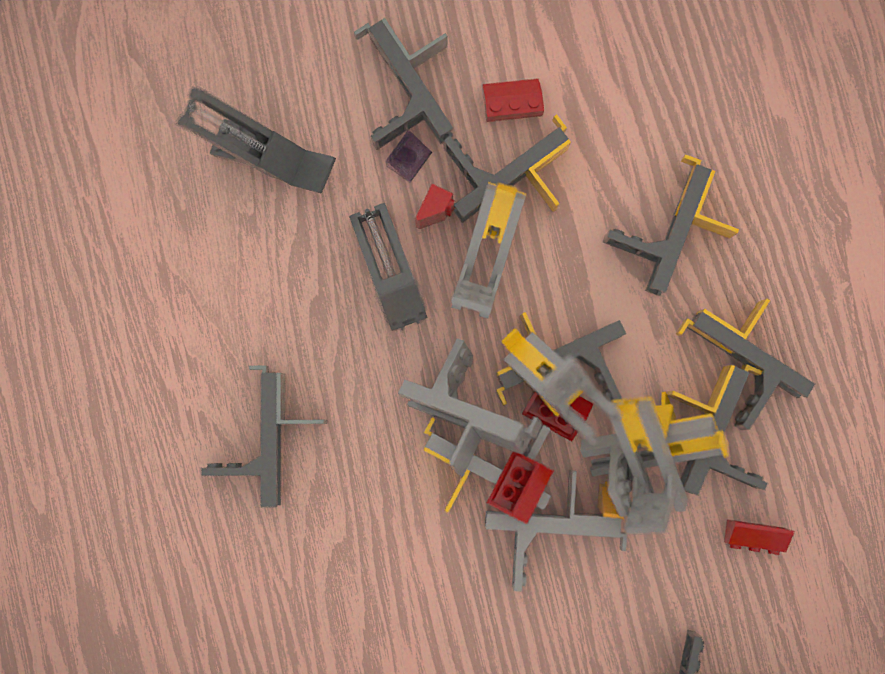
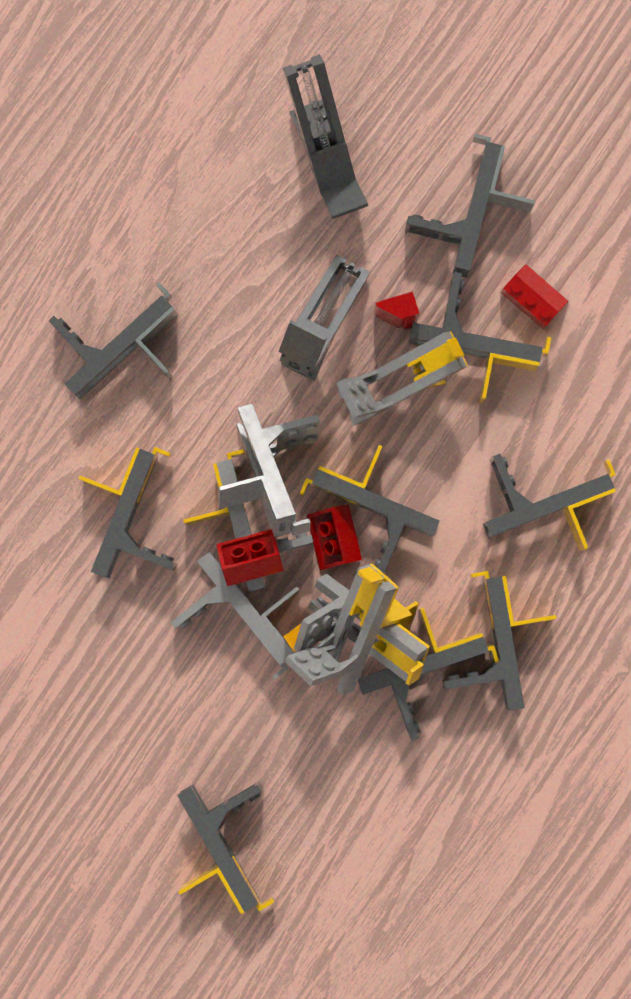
camera: 50 degrees right, 0 degrees up
(408, 156) = (420, 258): slope -> none
(411, 570) = (131, 493): none -> dark grey piece
(554, 379) = (348, 507): light grey piece -> none
(757, 537) = (373, 769): red slope -> none

